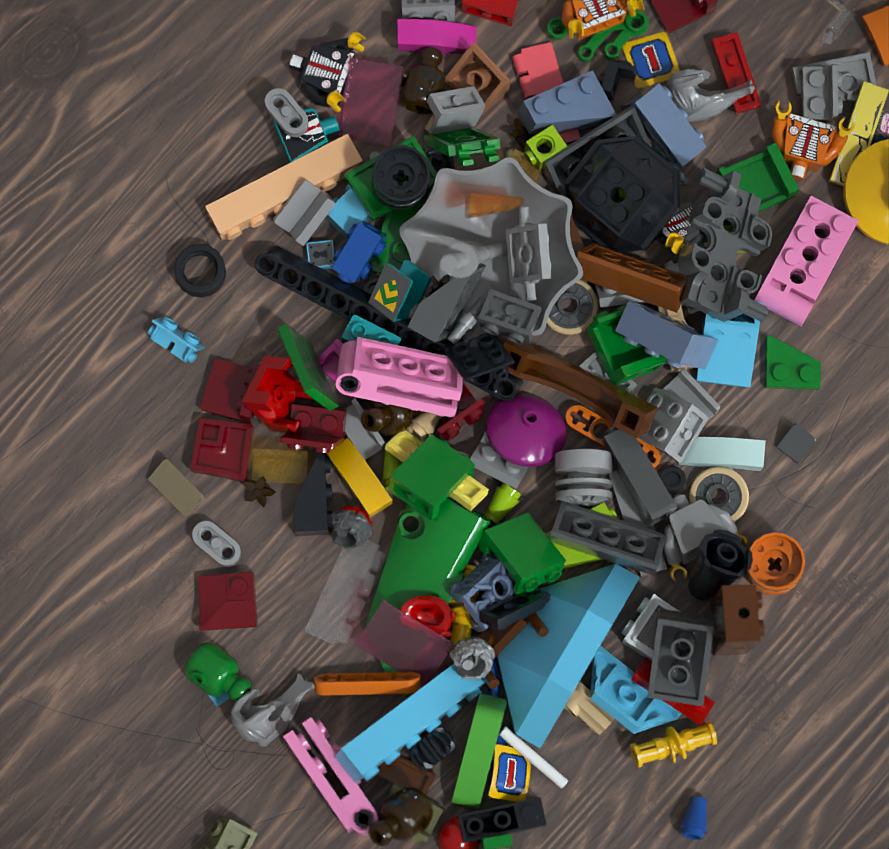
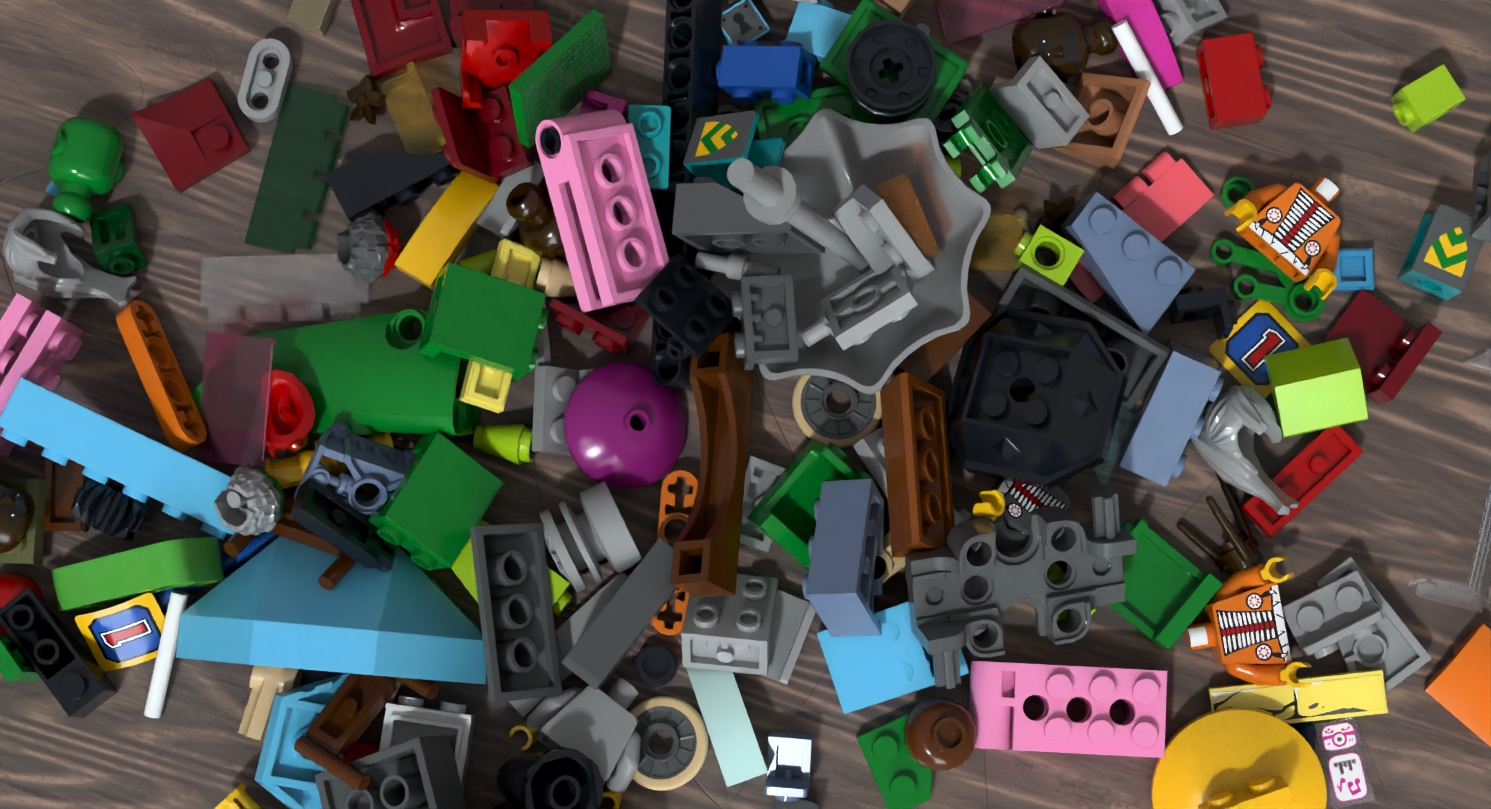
camera: 65 degrees right, 5 degrees up
(270, 674) = (117, 240): none -> dark green bracket
(284, 560) = (289, 179): none -> clear green windscreen
(484, 44) = (1144, 71): none -> white bar
(493, 226) = (877, 232): none -> light grey bracket
(623, 664) = (346, 720): none -> reddish brown plate
(688, 39) = (1316, 387): none -> slope
(759, 126) = (1240, 548): none -> dark brown plant
(765, 428) = (789, 765): none -> bracket
(787, 336) = (940, 734): none -> reddish brown piece

